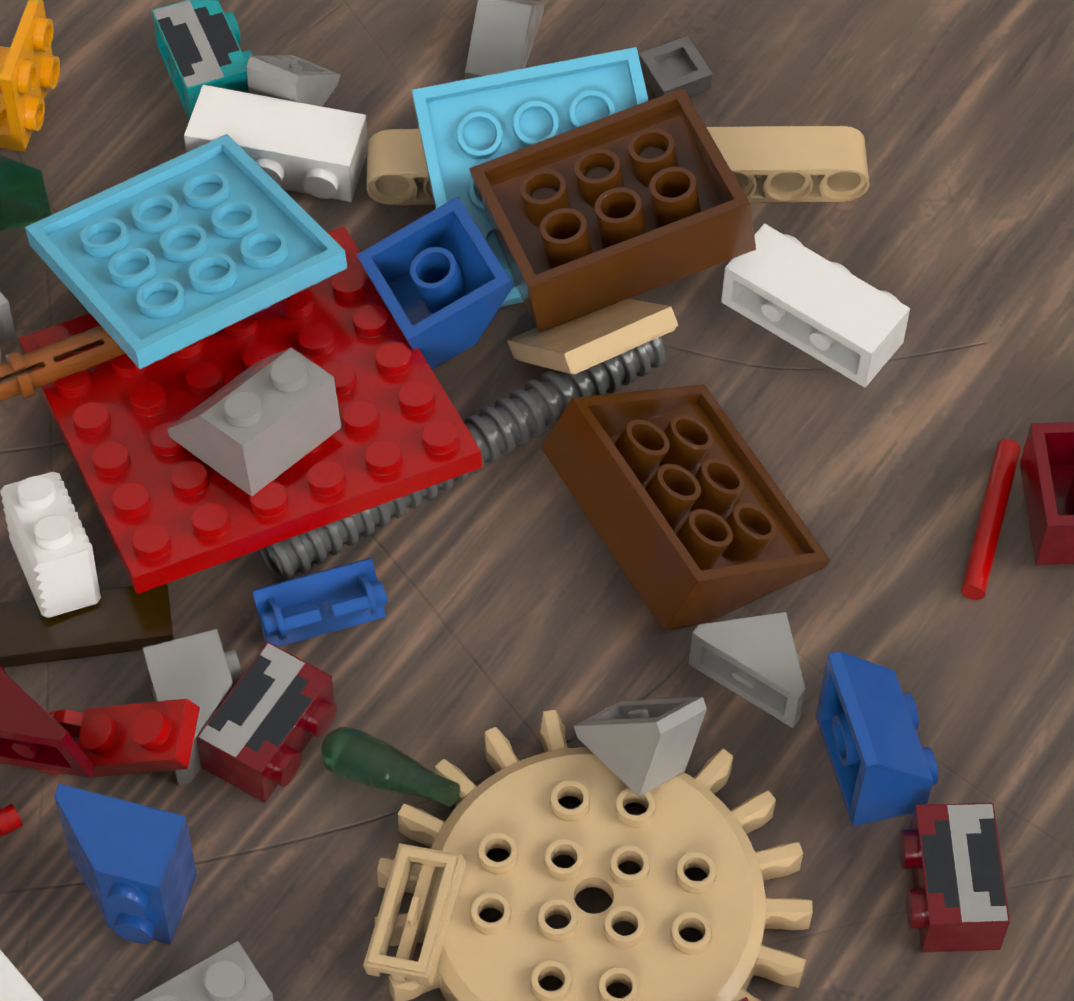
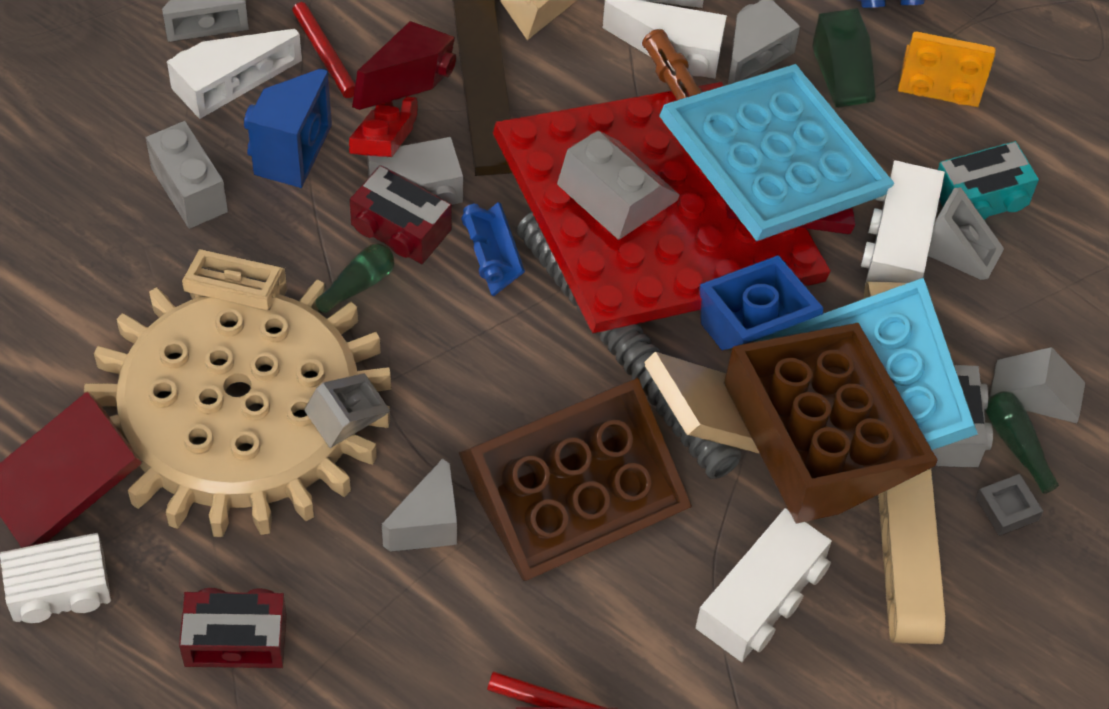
camera: 90 degrees right, 0 degrees up
(51, 544) = (537, 88): white brick -> none
(584, 46) = (1019, 435): none -> clear green piece
(873, 740) = (347, 573): blue slope -> none

